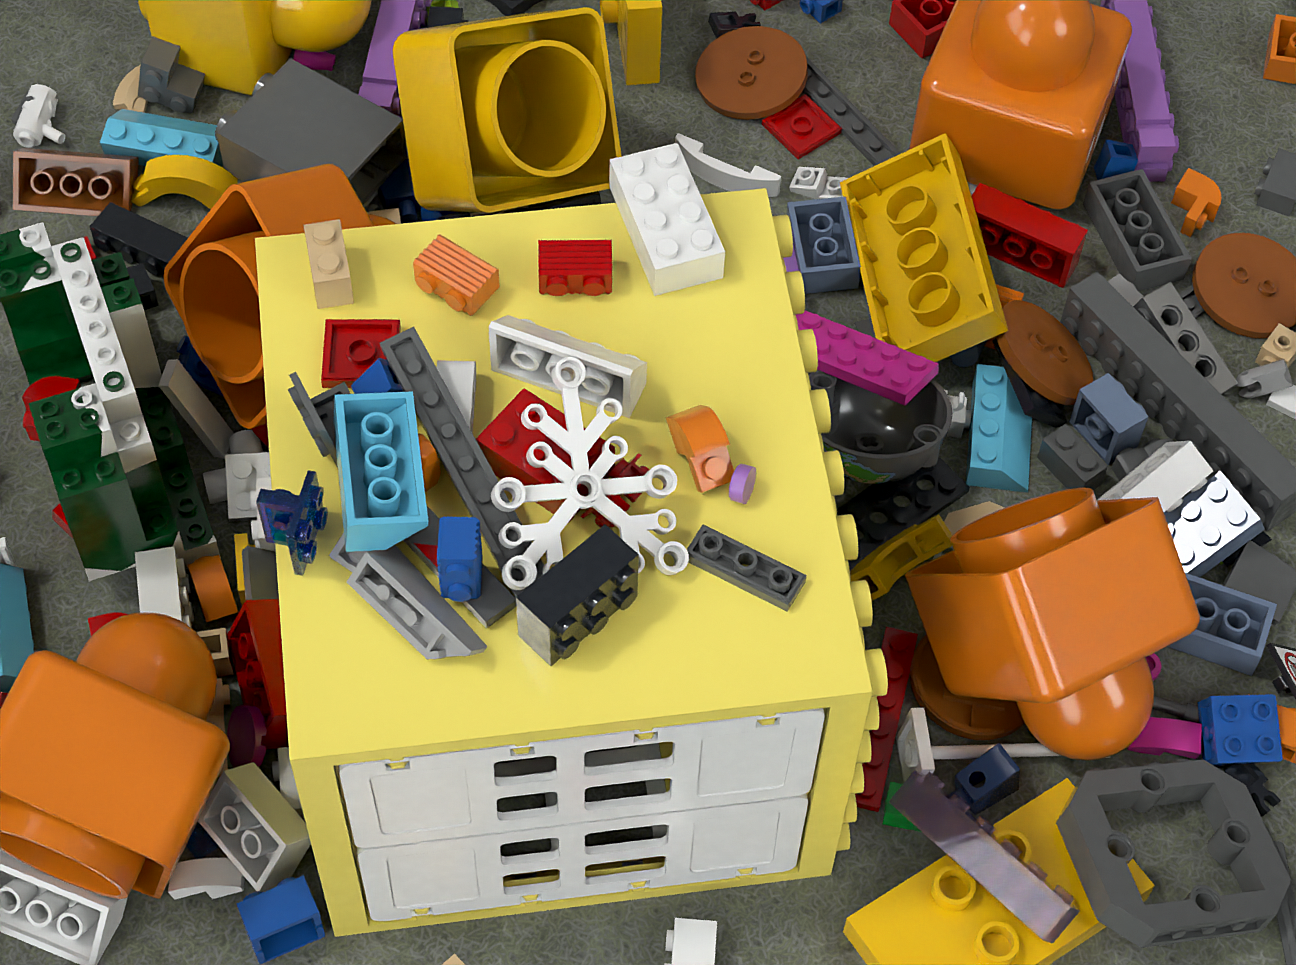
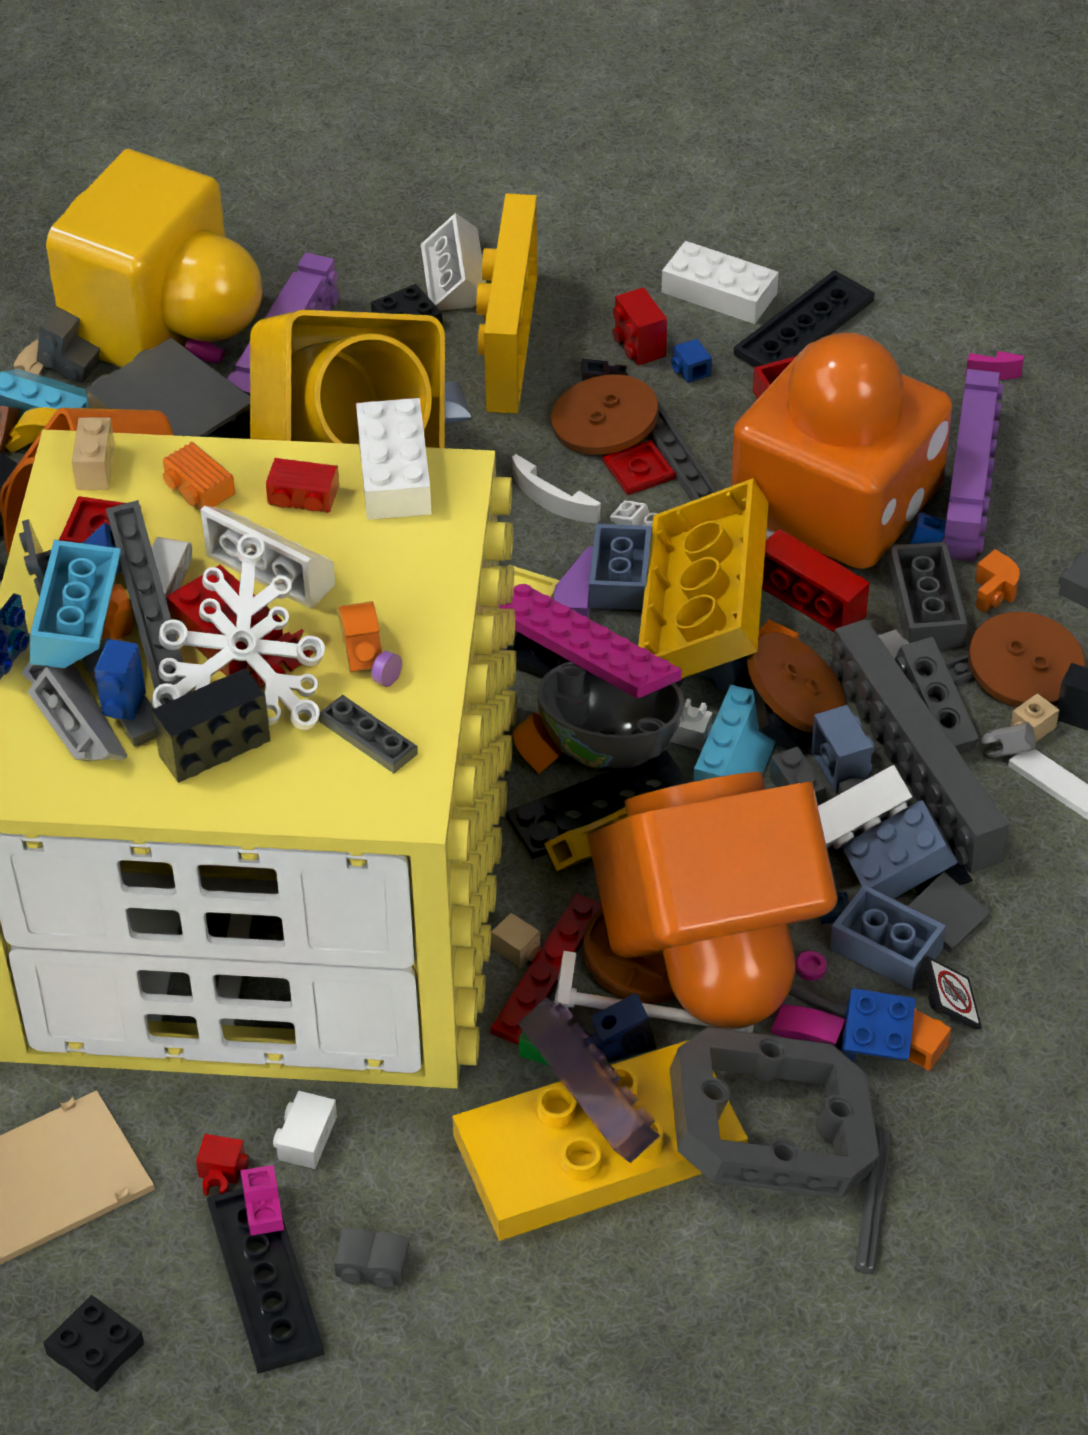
camera: 15 degrees right, 10 degrees down
(1254, 779) = (879, 1079): black plate -> none

